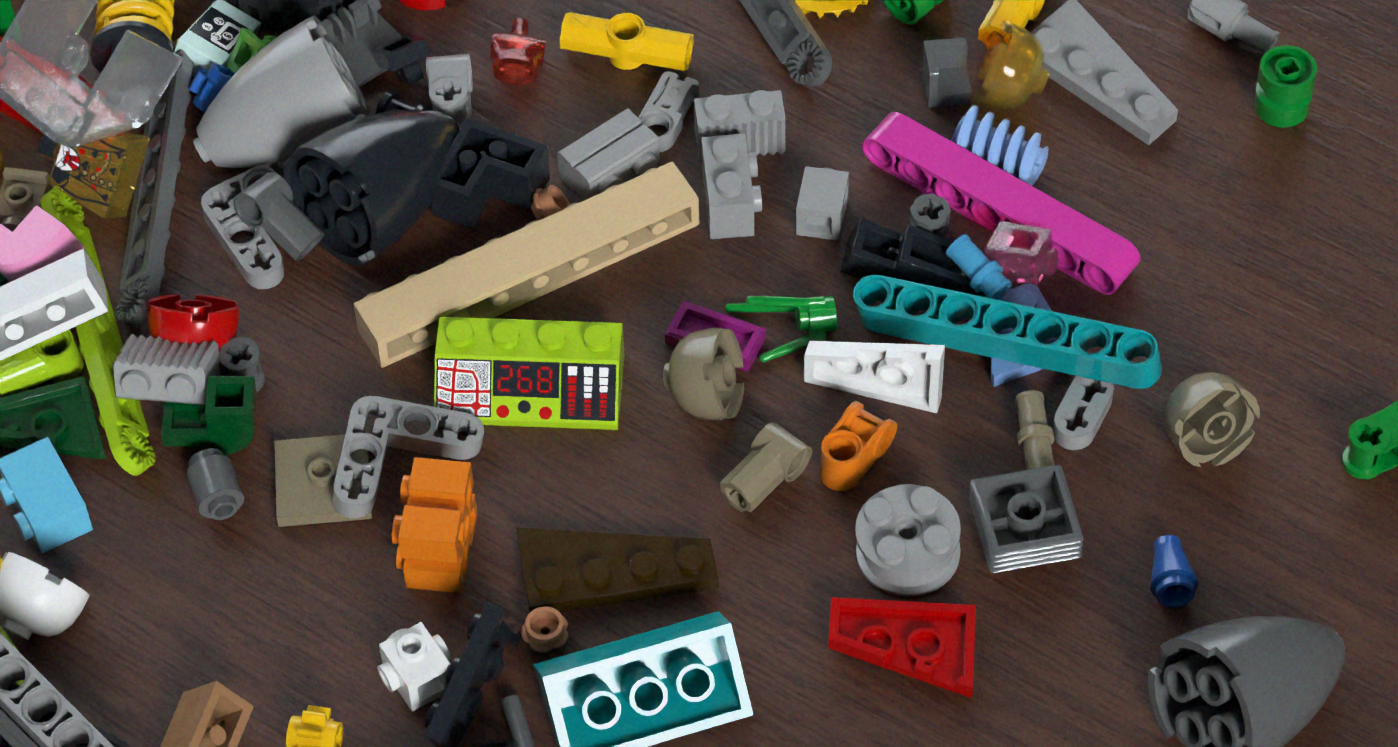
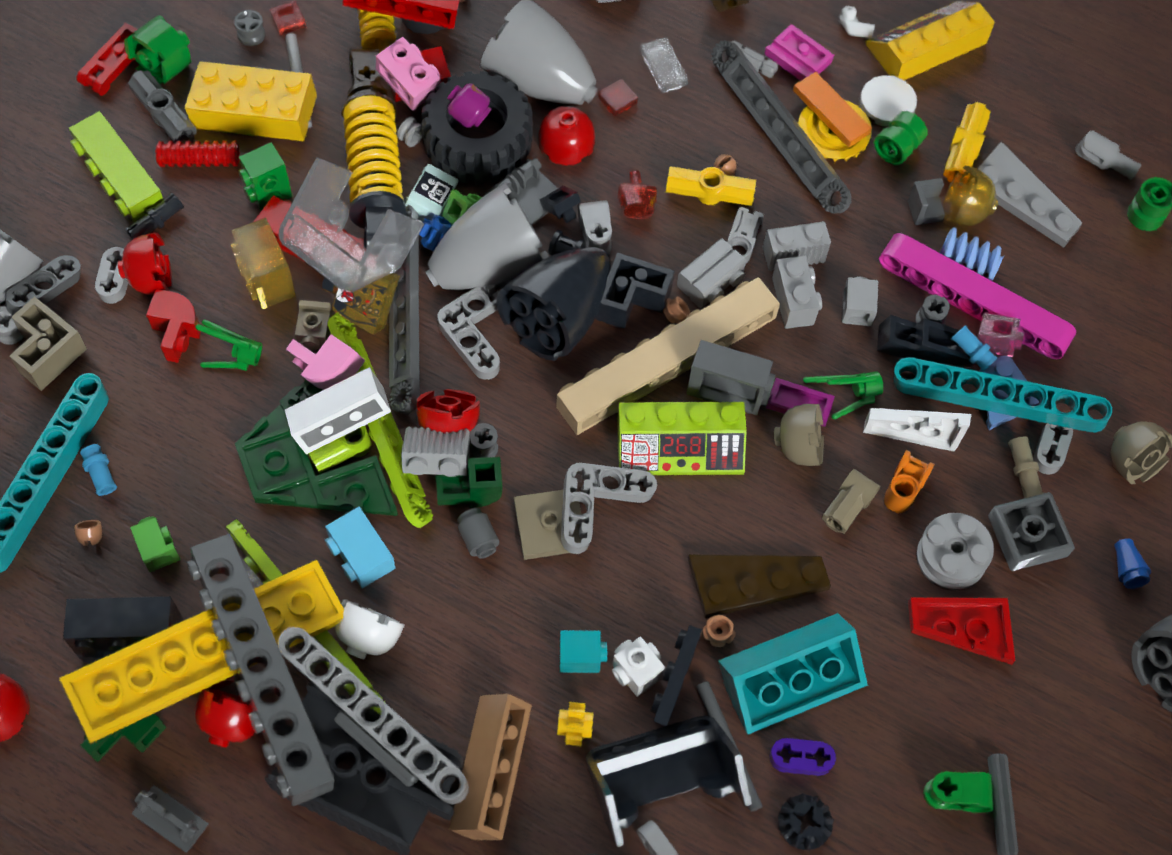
camera: 10 degrees left, 10 degrees up
(270, 206) = (487, 322): dark grey piece -> none
(338, 645) = (581, 651): none -> teal brick
(435, 524) = (638, 560): orange brick -> none
(586, 261) = (730, 376): none -> dark grey window
(656, 14) = (730, 165): none -> nougat hinge

